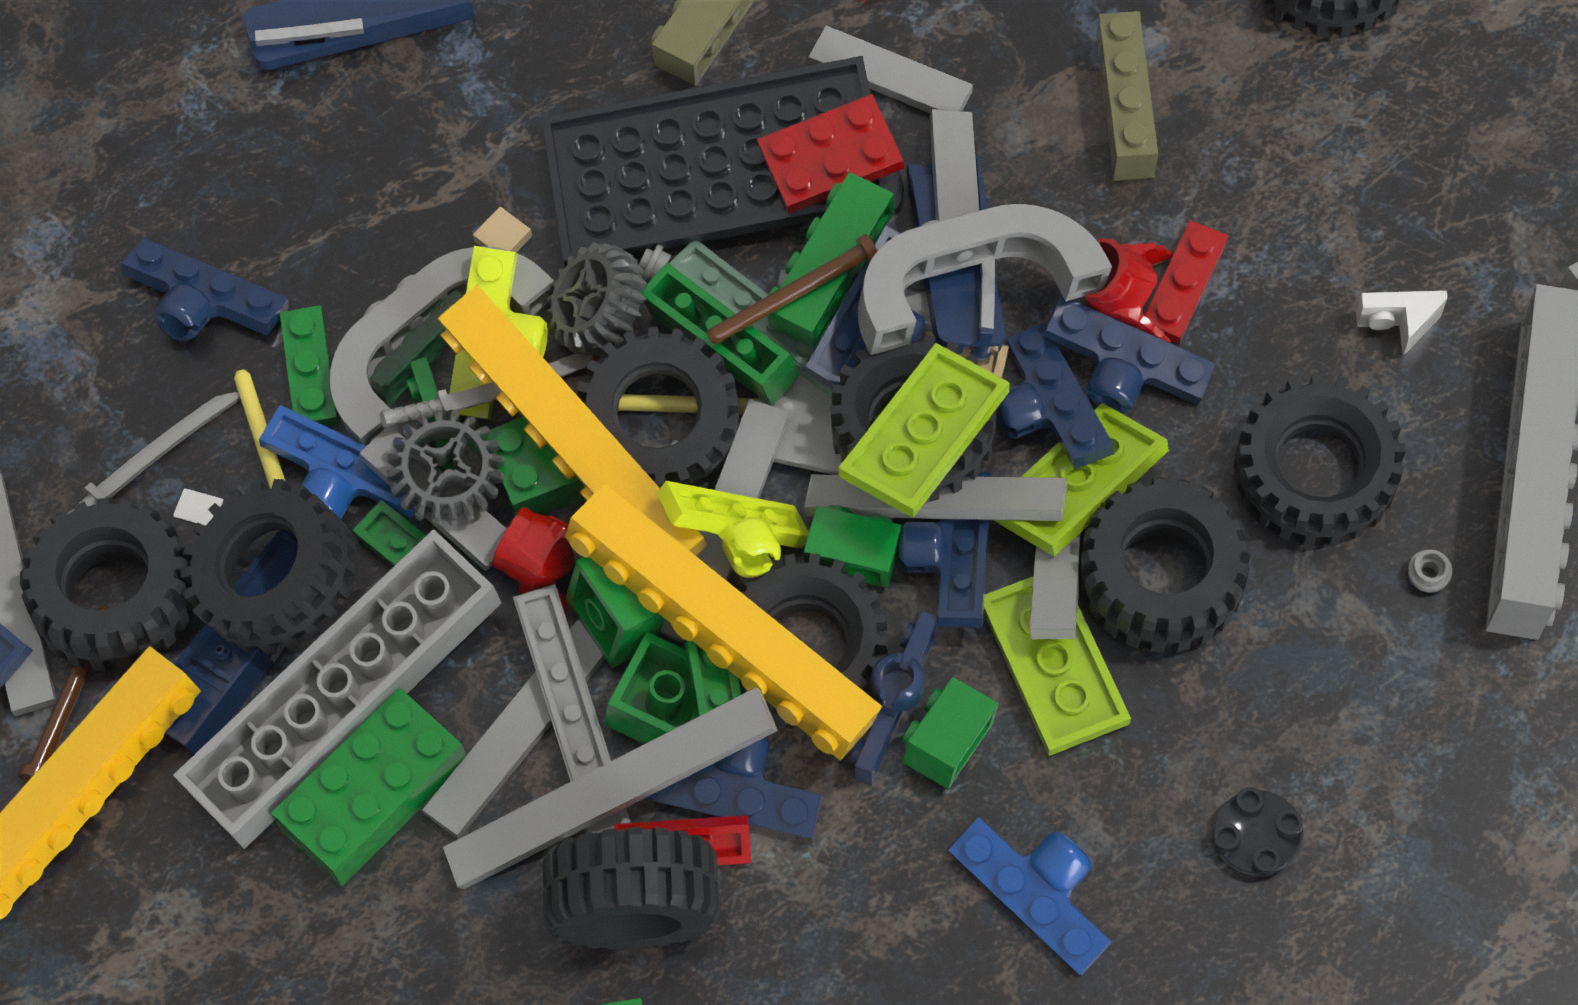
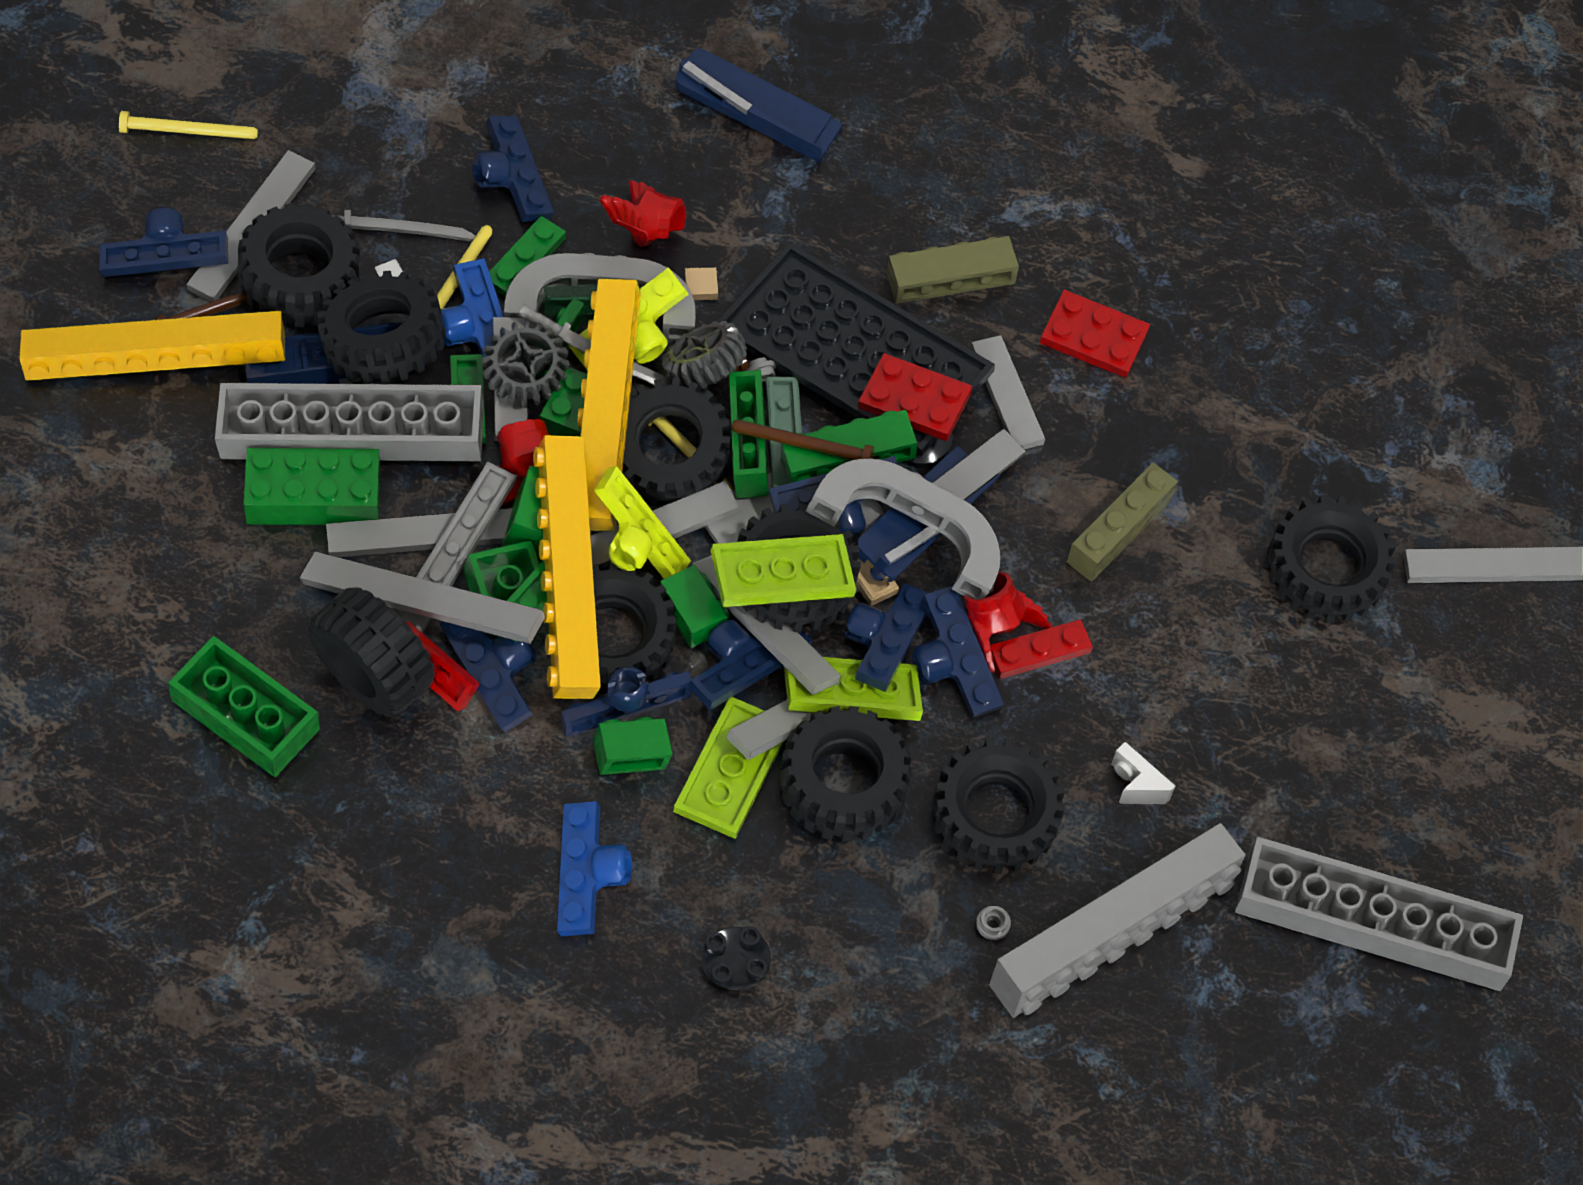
camera: 35 degrees right, 5 degrees down
(382, 214) = (648, 213): none -> red helmet

